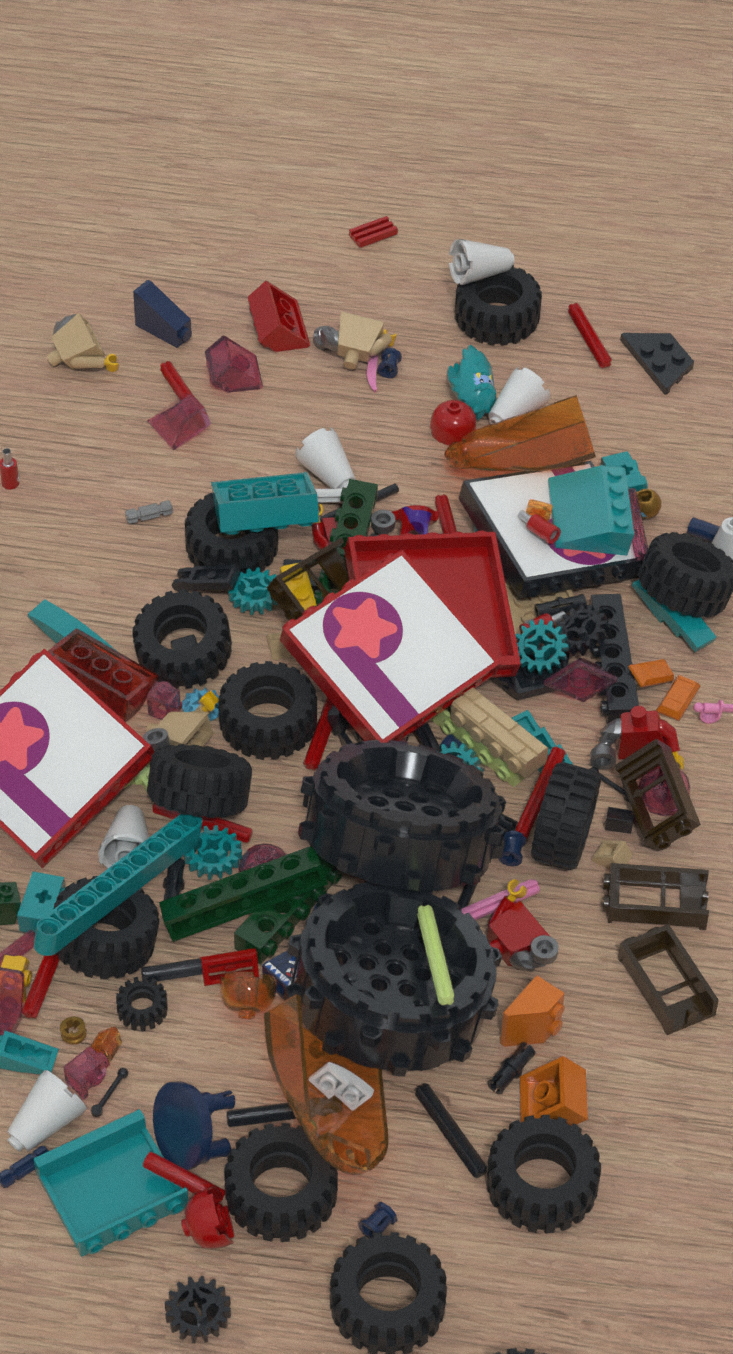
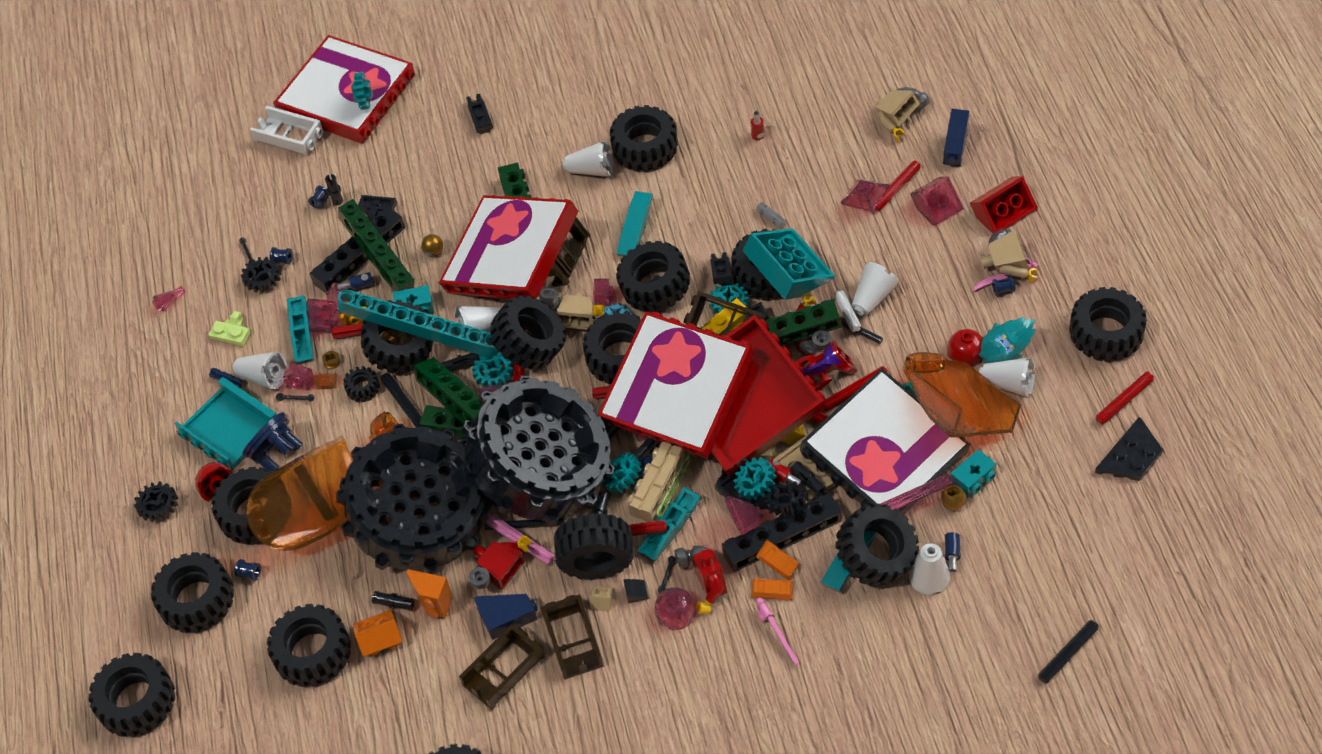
camera: 75 degrees right, 5 degrees up
(107, 673) = (604, 247): clear red slope -> none
(177, 1174) = (241, 443): red axle -> none
(228, 962) = (404, 413): red tile -> none
(343, 1084) = (322, 498): white slope -> none
(373, 231) = (1146, 219): red tile -> none
(435, 955) = (416, 505): yellowish green axle -> none
(451, 1130) = (336, 580): black axle -> none
(478, 261) = (1119, 286): white cone -> none
(538, 507) = (879, 424): clear orange slope -> none
(541, 527) = (859, 431): red piece -> none
(592, 510) = (904, 459): teal slope -> none
(592, 954) = (503, 610): none -> dark blue slope
(641, 763) = (652, 601): dark brown door -> none

